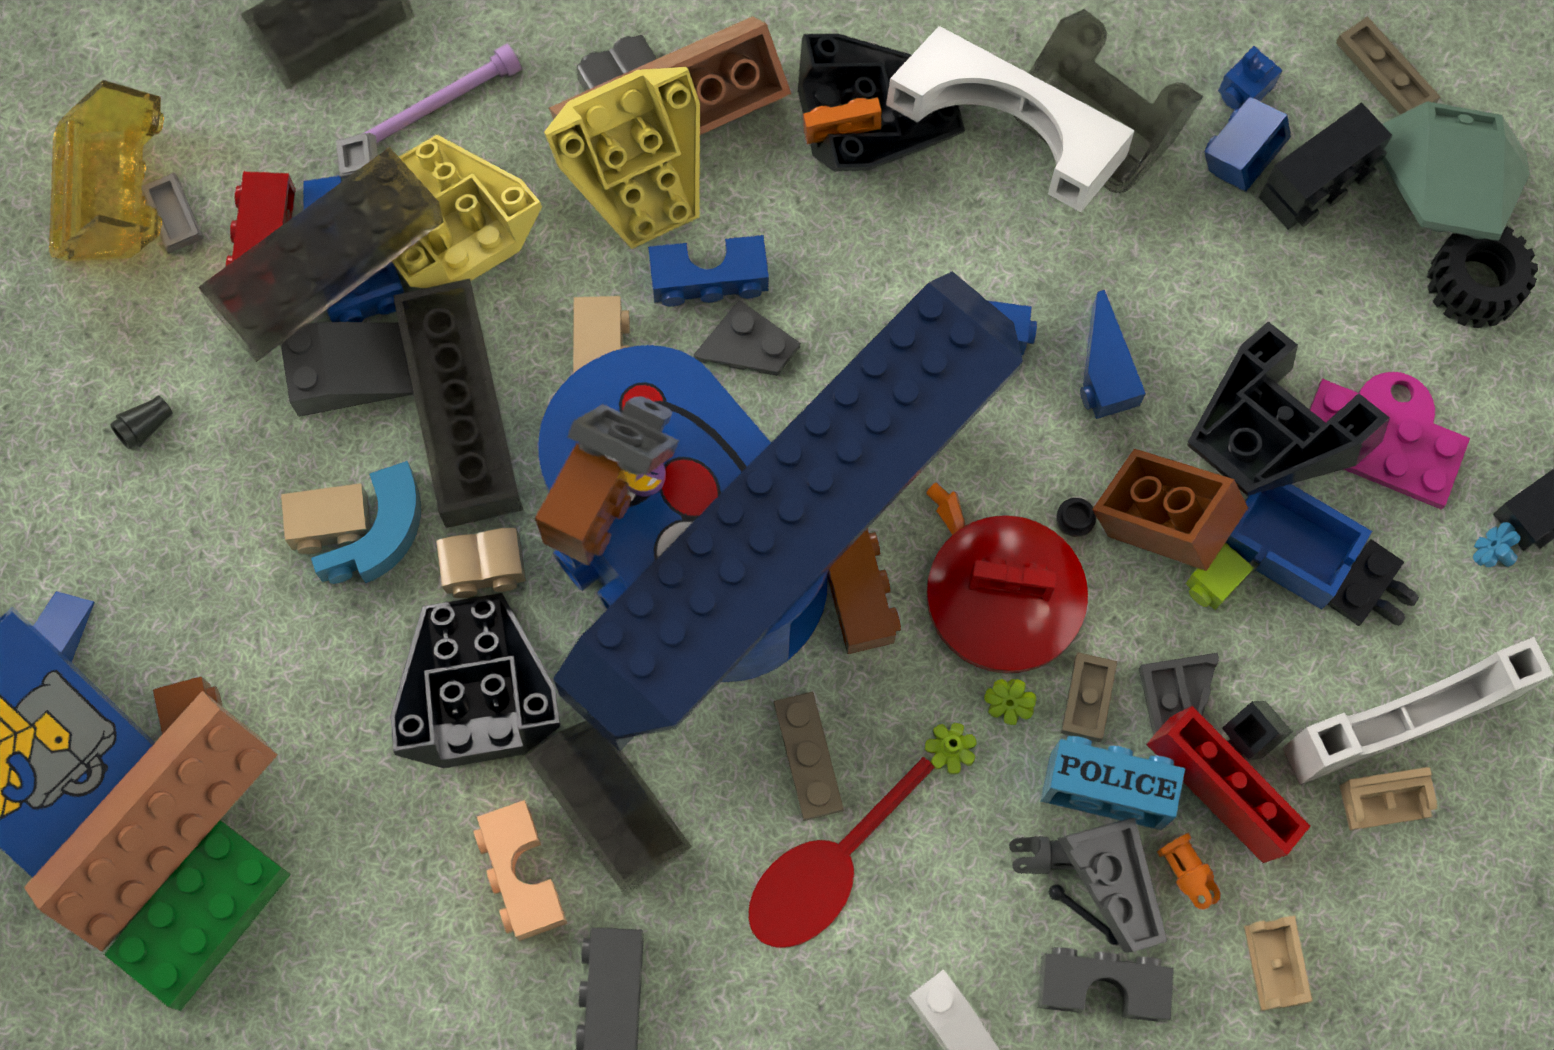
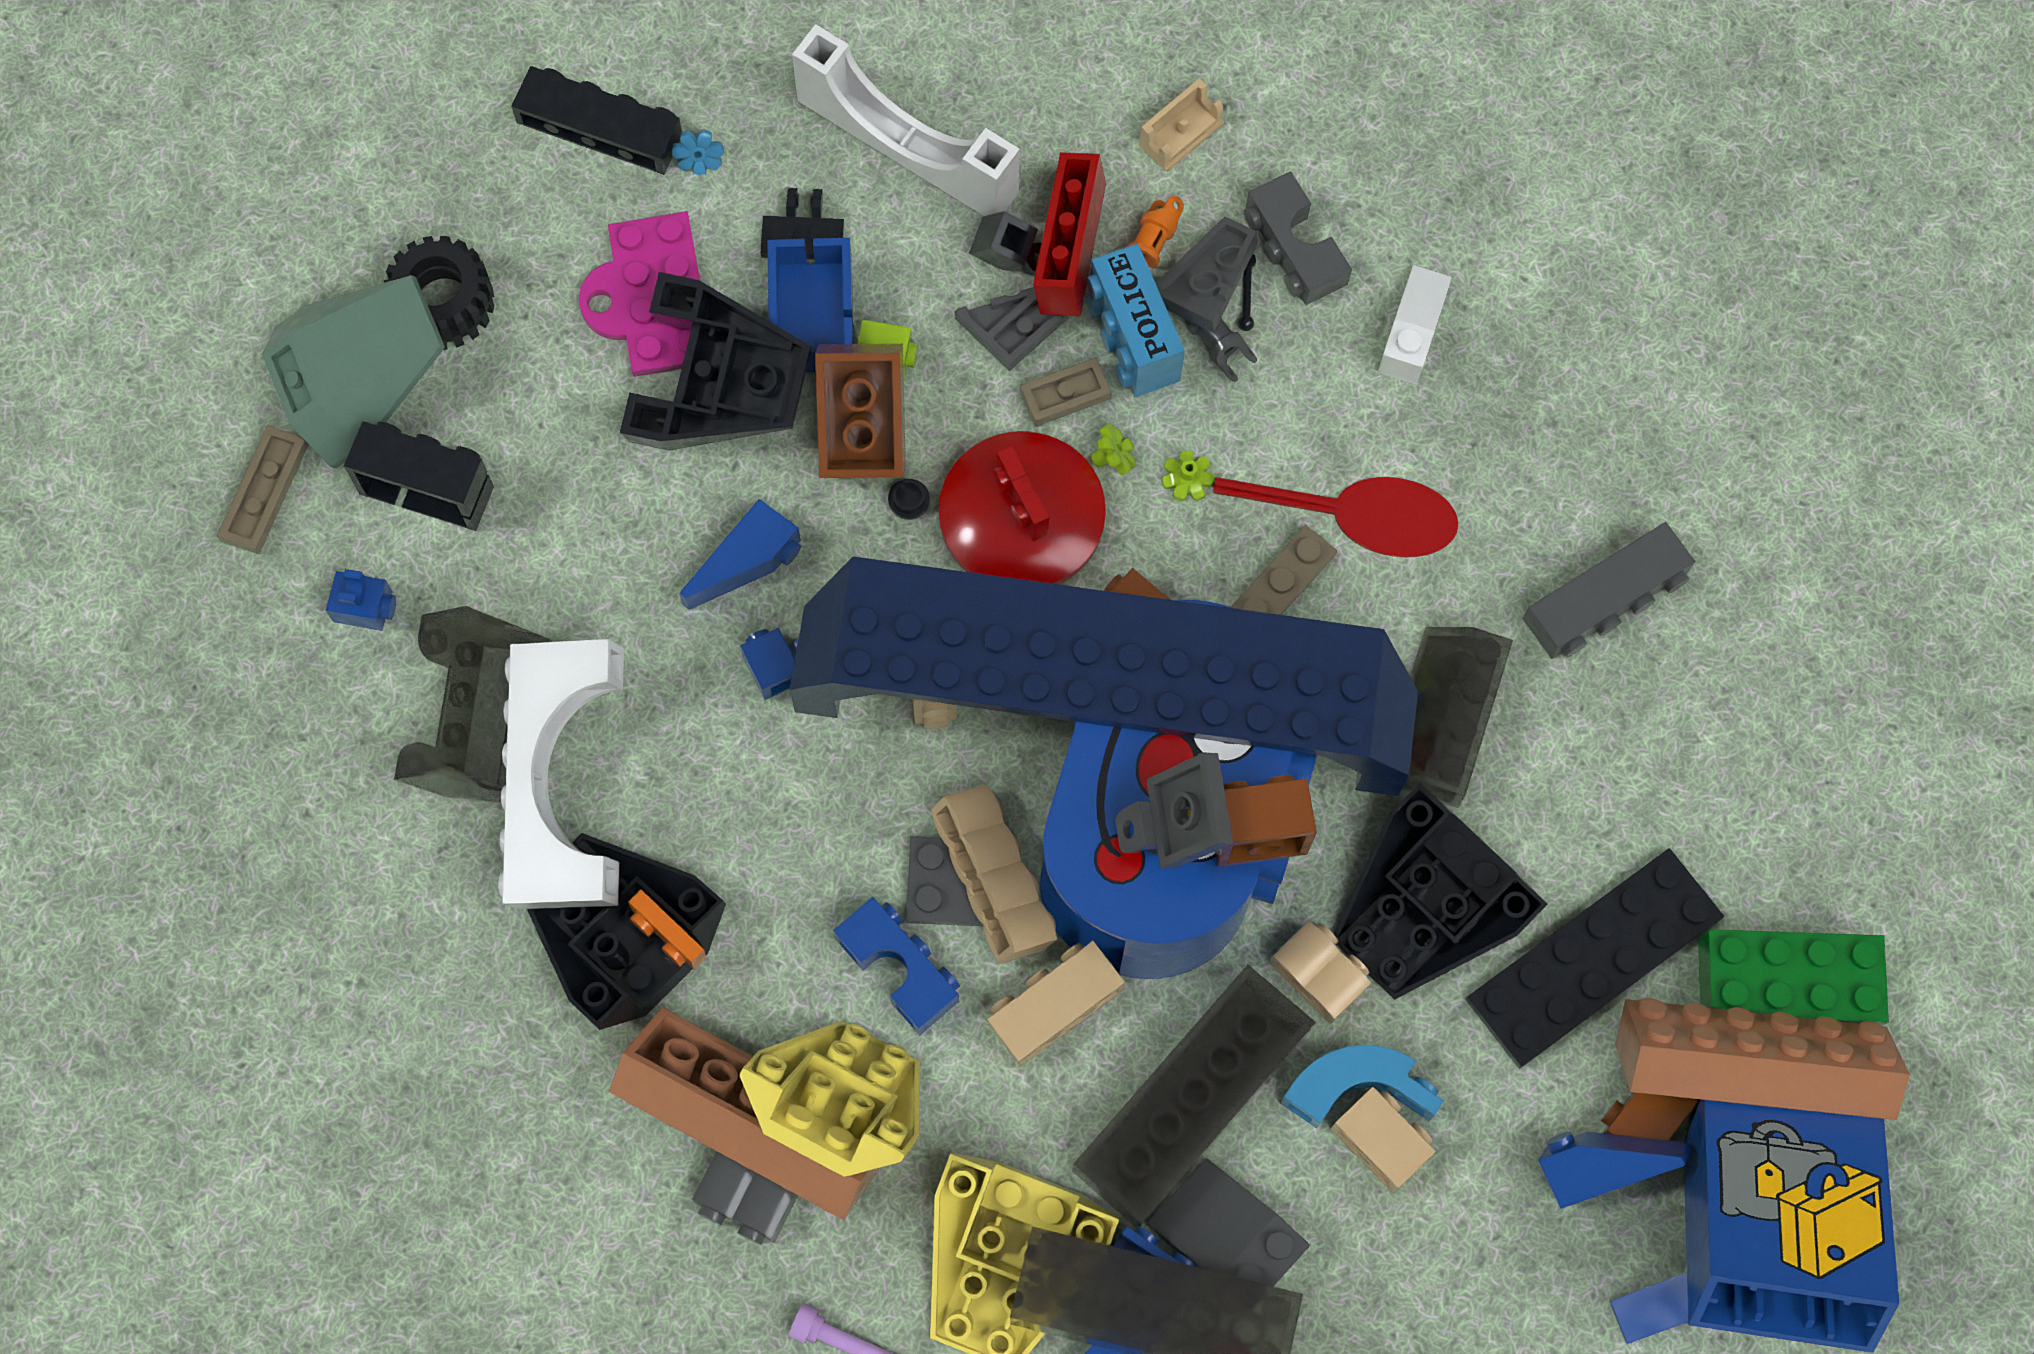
camera: 125 degrees left, 0 degrees up
(176, 654) = (1601, 1163): none -> blue slope
(337, 782) = (1594, 958): none -> black plate
(505, 837) = (1534, 774): light nougat arch -> none
(751, 378) = (995, 878): none -> tan brick
(1247, 143) = (434, 562): brick -> none
(1388, 798) = (974, 112): tan hinge -> none

